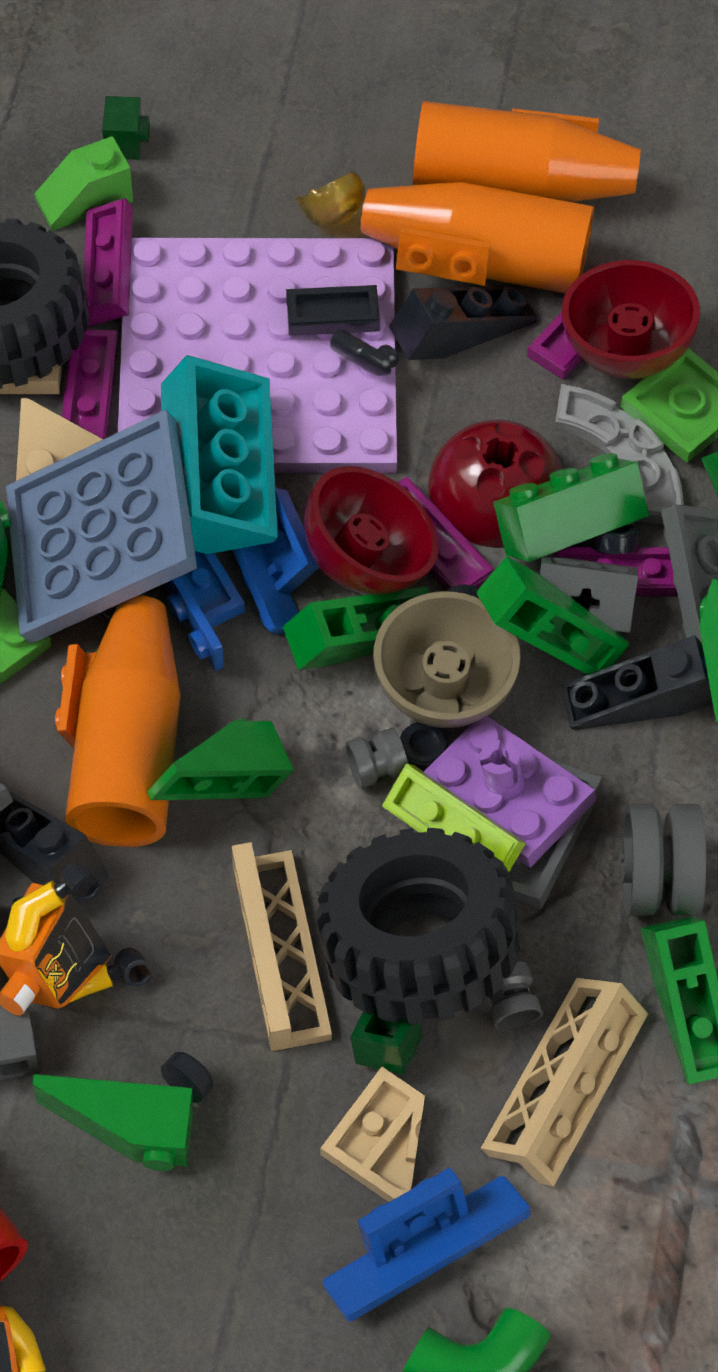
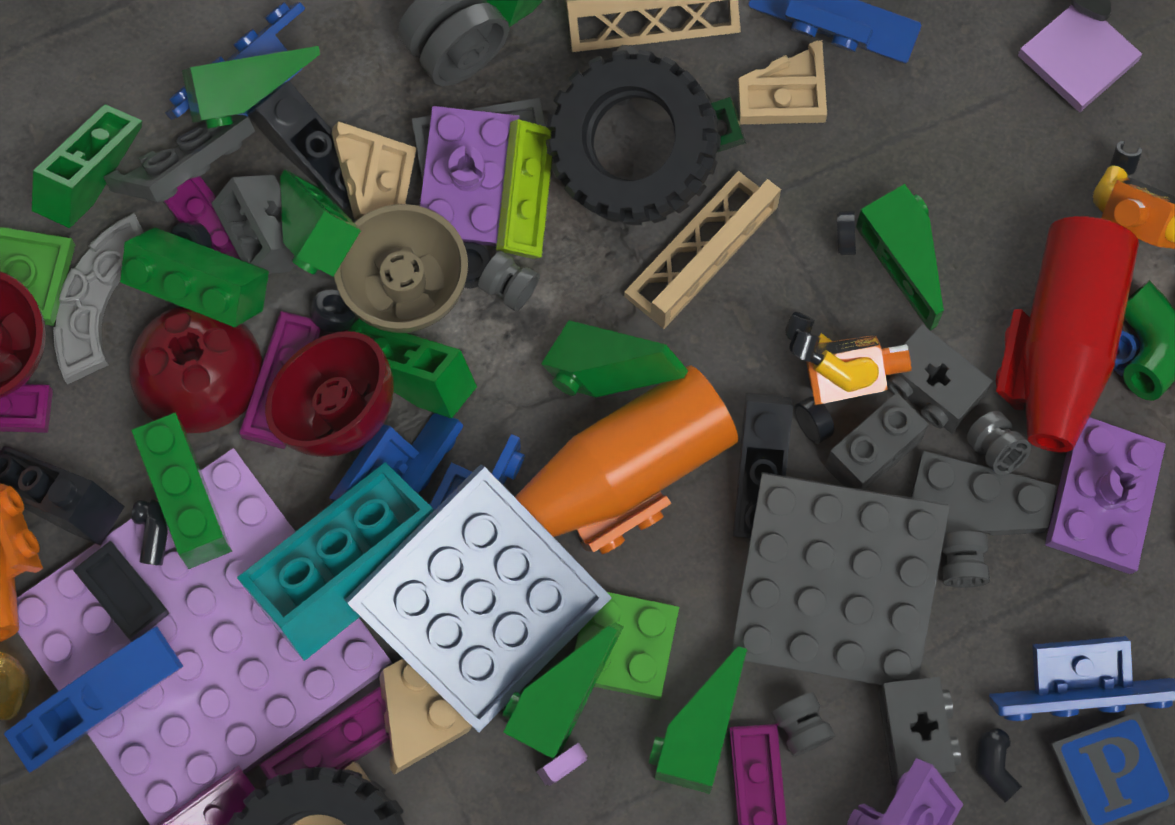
camera: 125 degrees left, 10 degrees up
(253, 239) = (93, 699): none -> blue slope
(376, 384) = (181, 491): none -> green brick
(568, 715) = (373, 168): none -> tan wing

